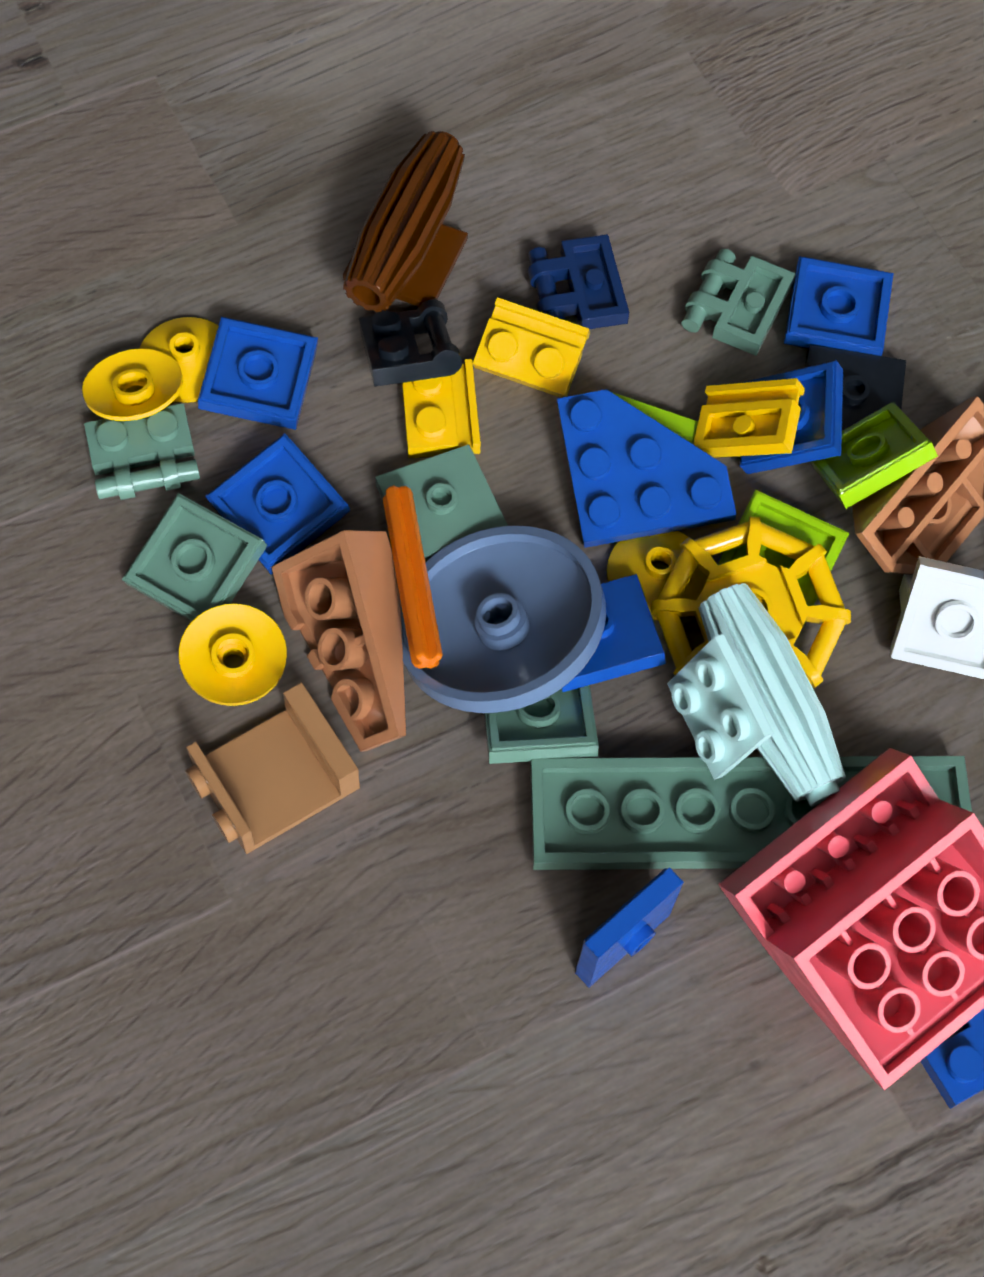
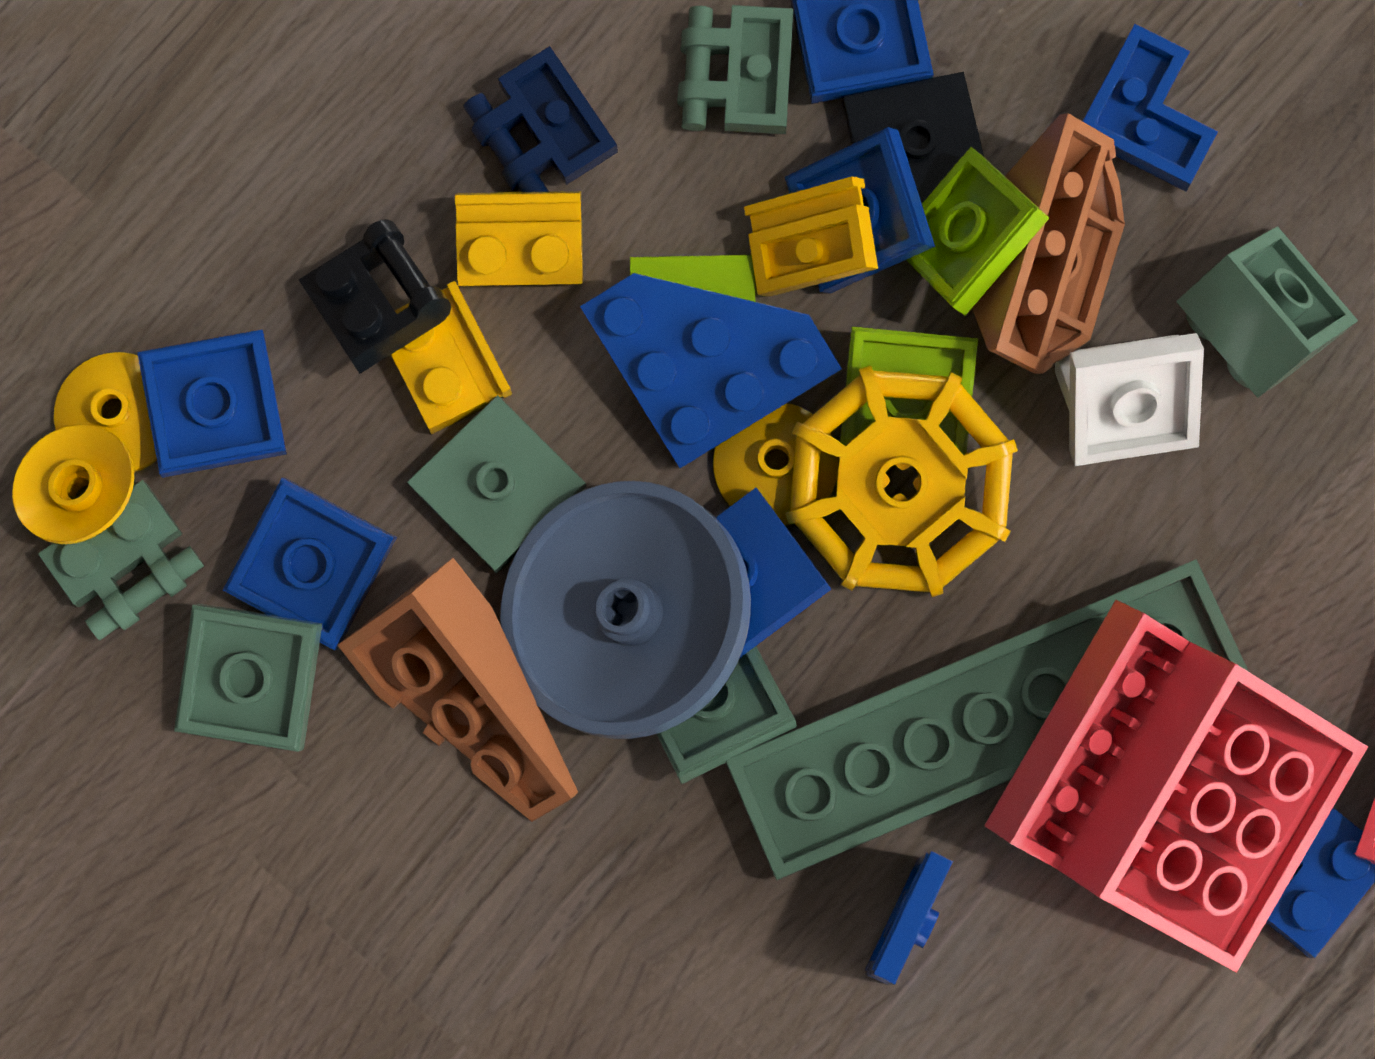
camera: 15 degrees left, 15 degrees up
(227, 632) = (308, 768): yellow dish -> none
(274, 773) = (446, 892): medium nougat panel -> none
(403, 243) = (313, 150): reddish brown plate -> none
(412, 578) = (506, 601): orange axle -> none
(754, 695) = (950, 600): light aqua plate -> none

